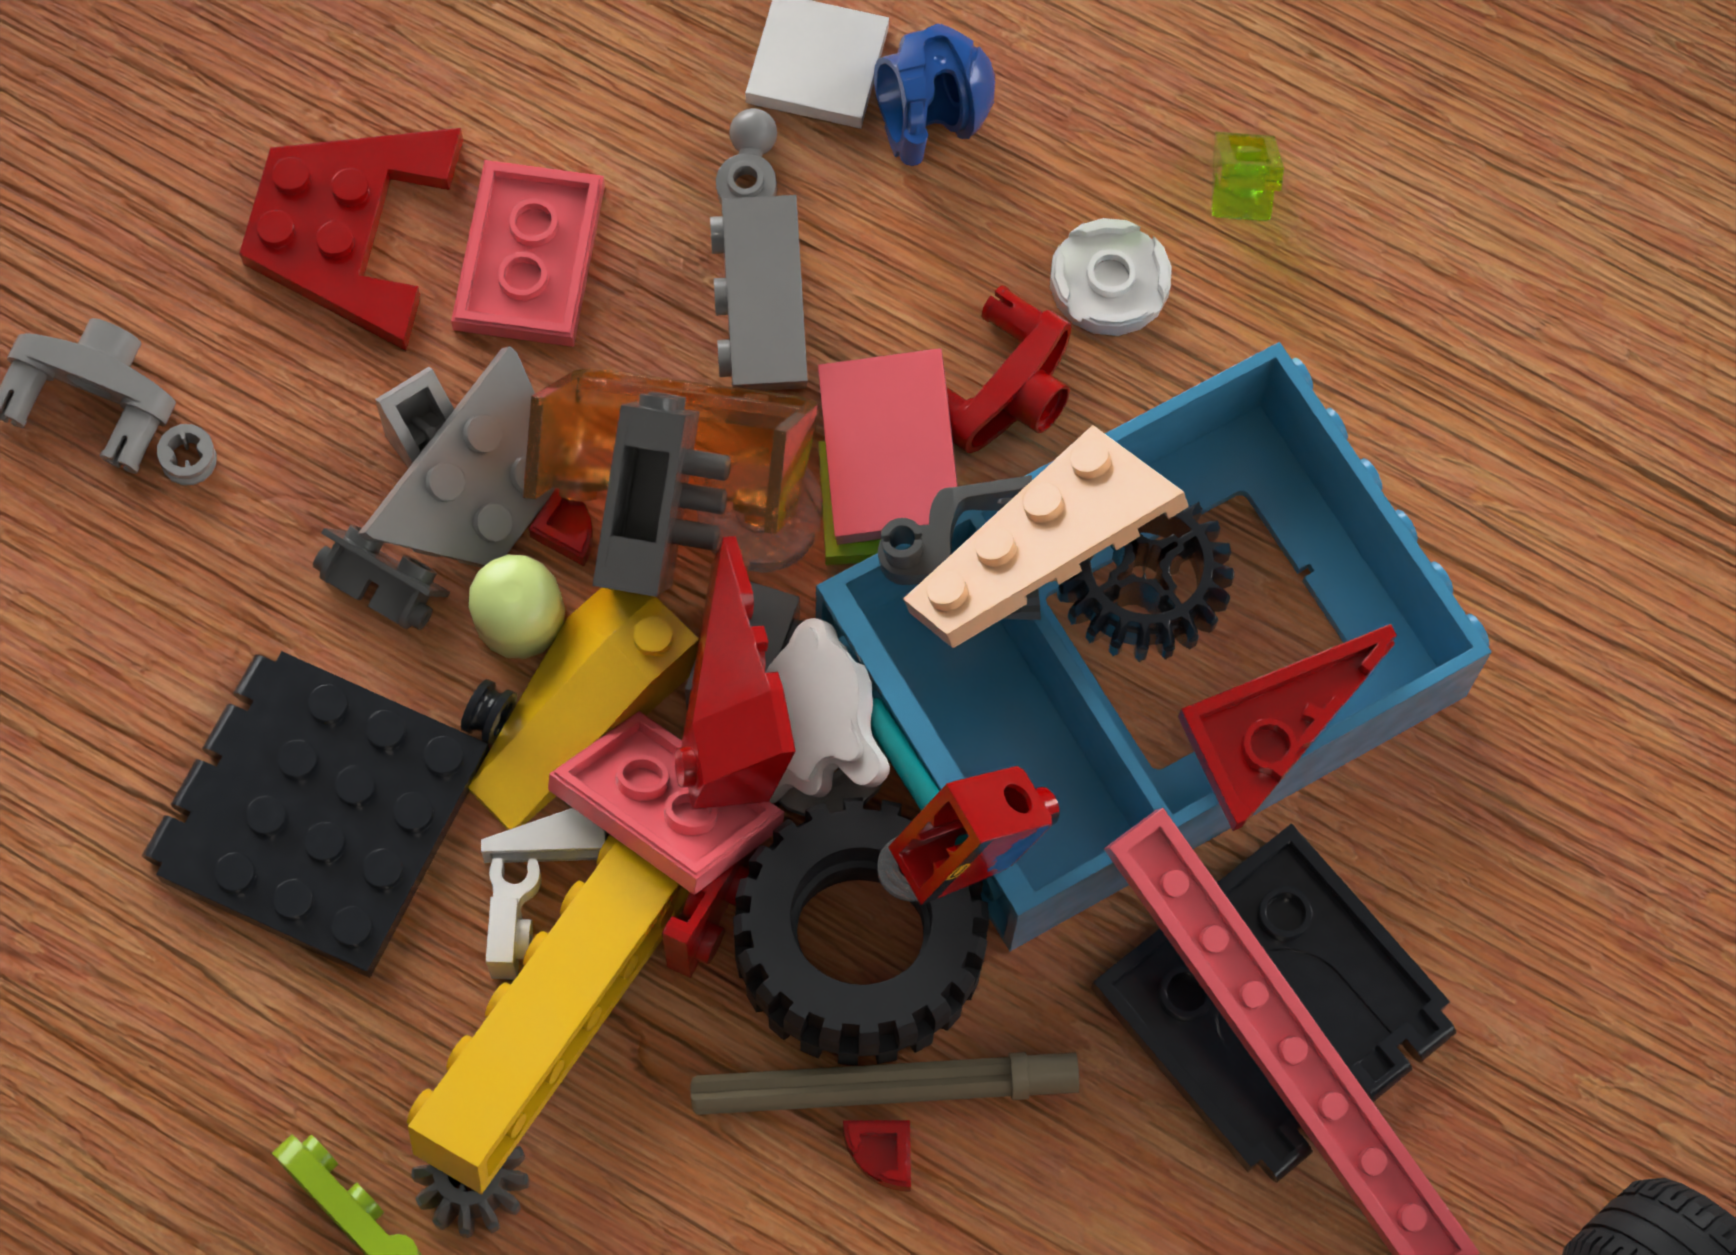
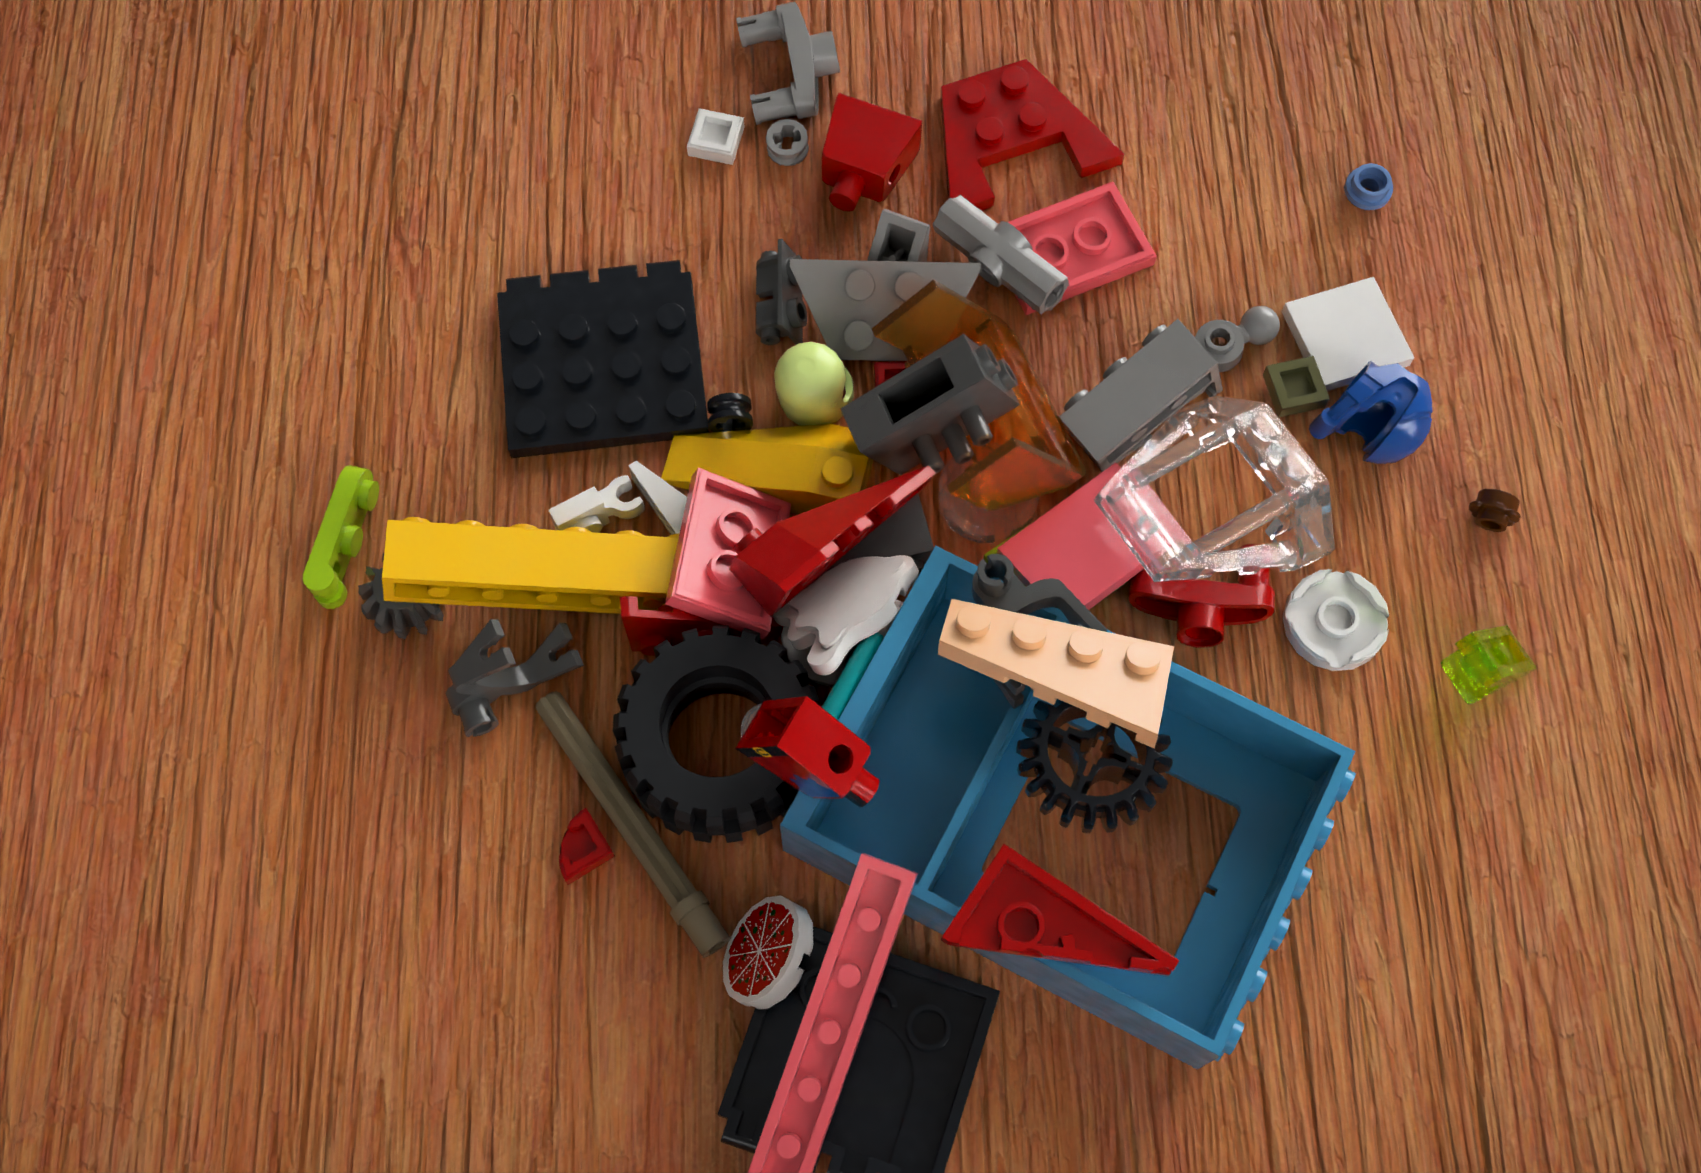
camera: 60 degrees right, 0 degrees up
(120, 525) = (715, 136): none -> white tile
(265, 380) = (866, 151): none -> red torso
(499, 319) = (1003, 254): none -> light grey piece
(640, 1123) = (483, 679): none -> dark grey piece
(844, 145) = (1295, 386): none -> olive plate
(996, 245) = (1298, 503): none -> clear windscreen
(1097, 59) = (1495, 510): none -> reddish brown plate
(1120, 1019) = (767, 952): none -> tile

